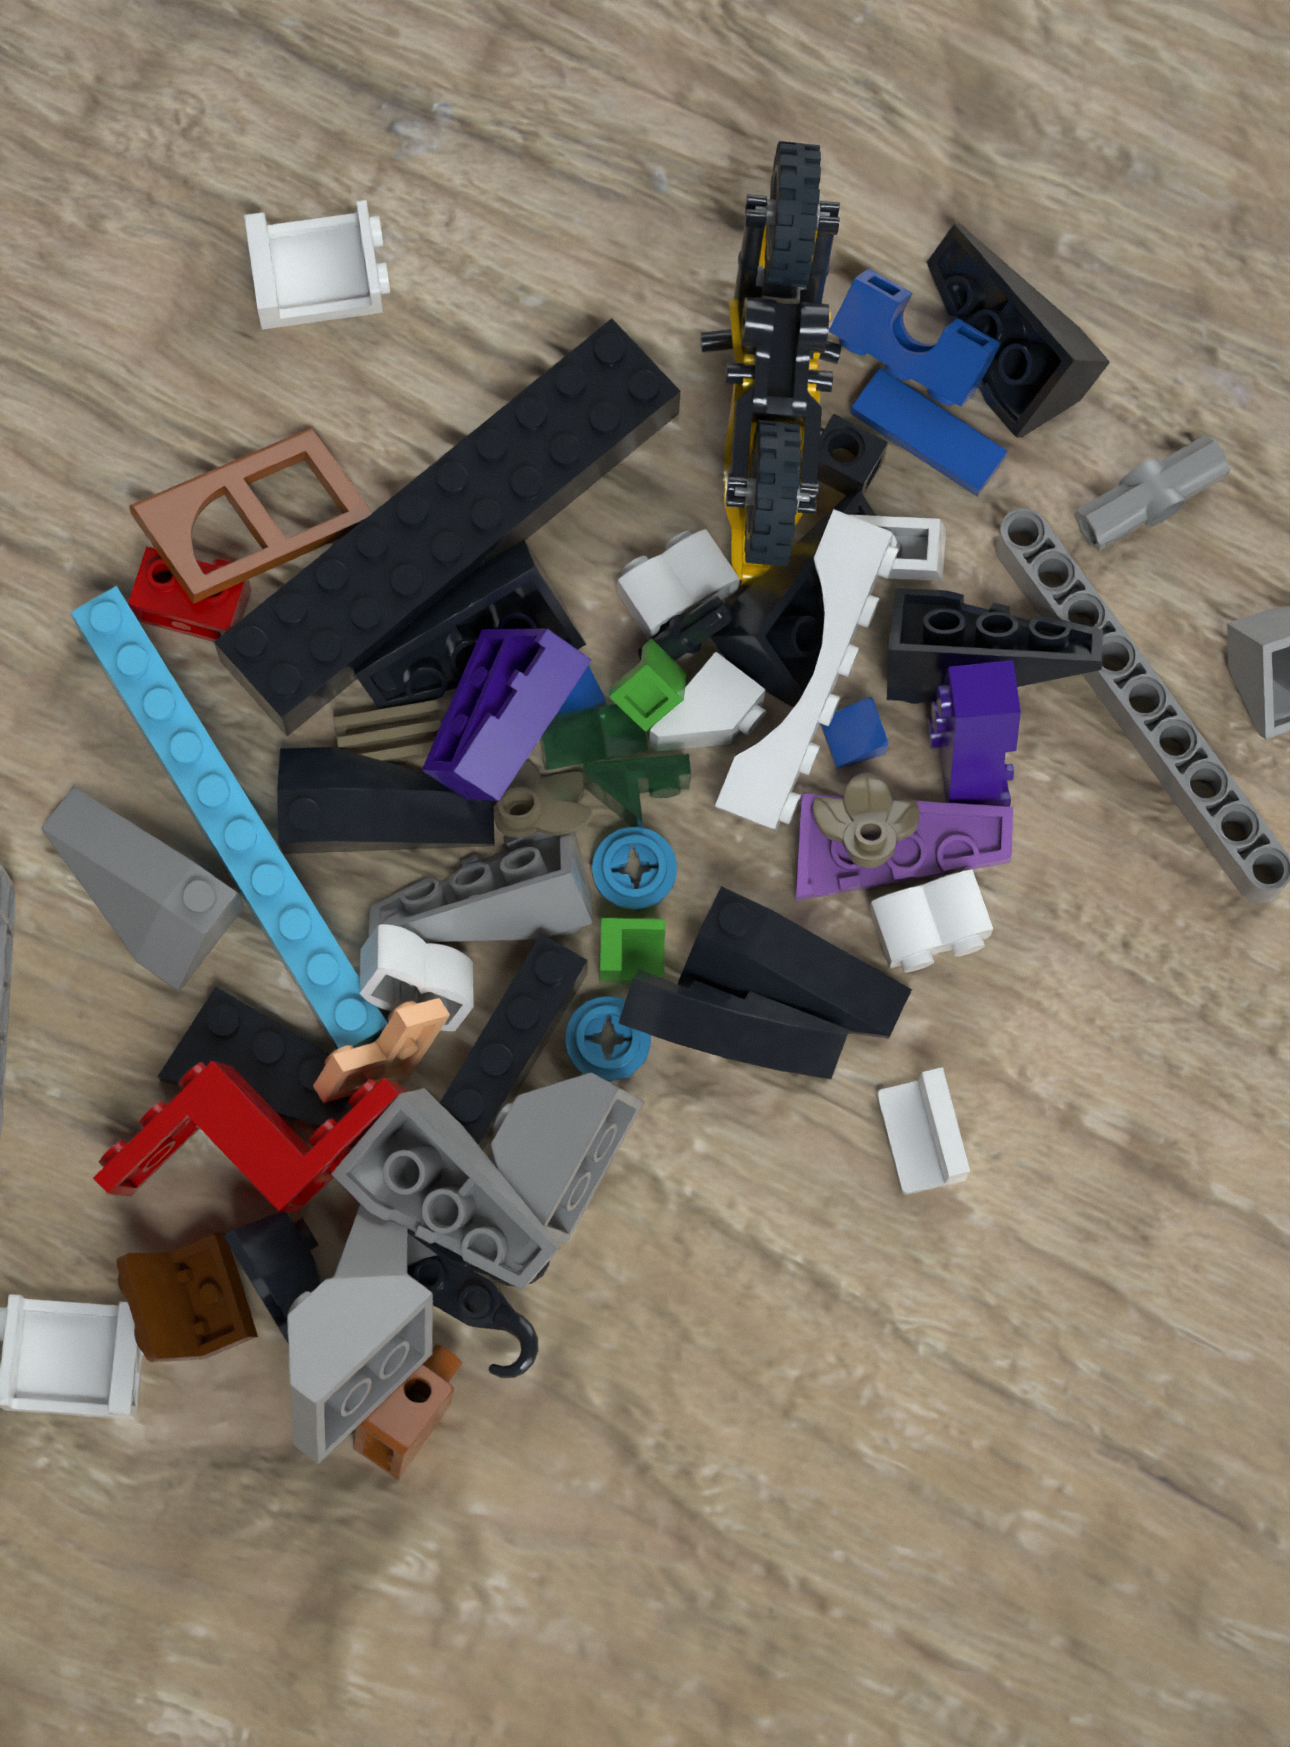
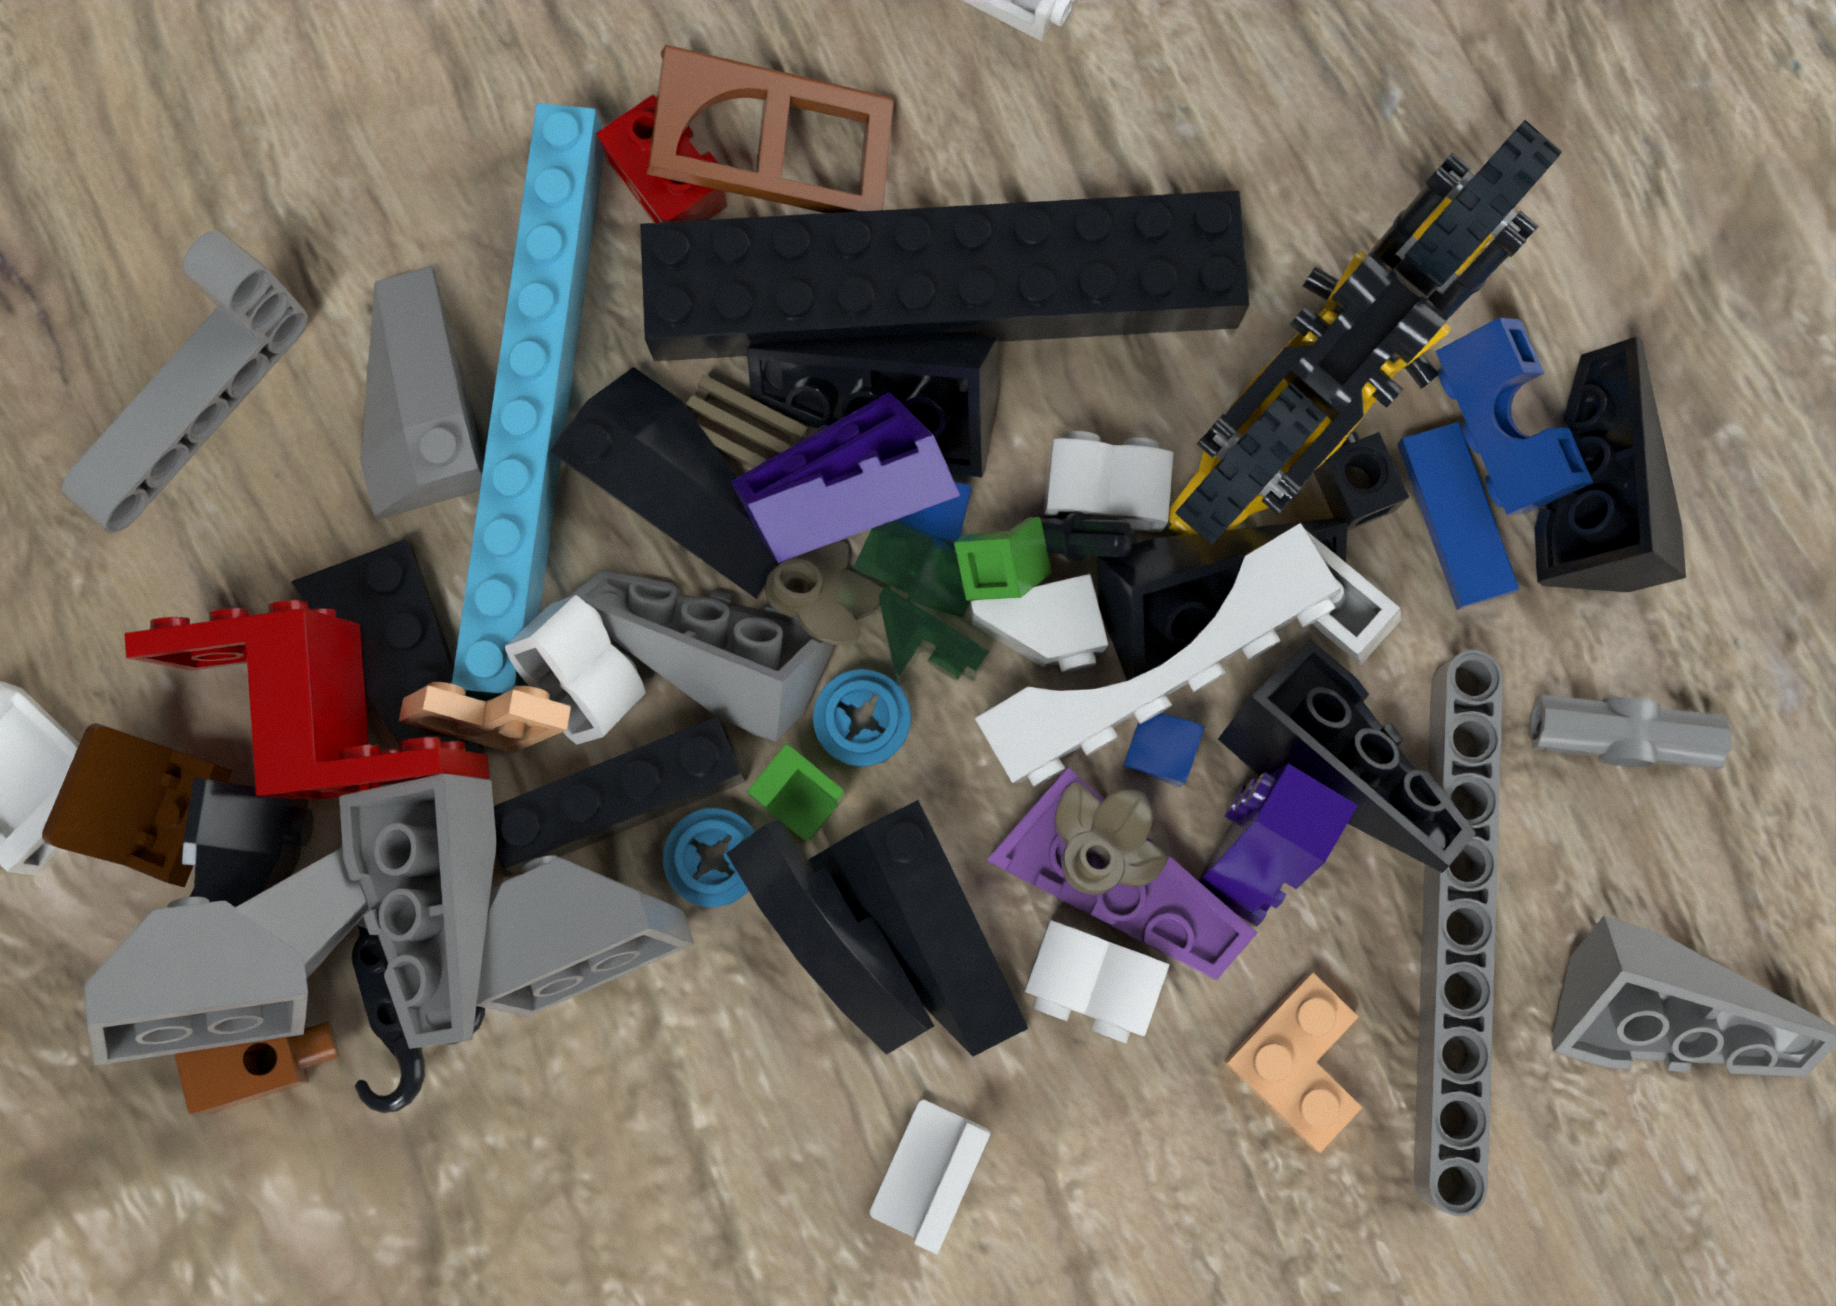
camera: 40 degrees right, 5 degrees up
(1097, 884) = (1283, 1066): none -> light nougat plate

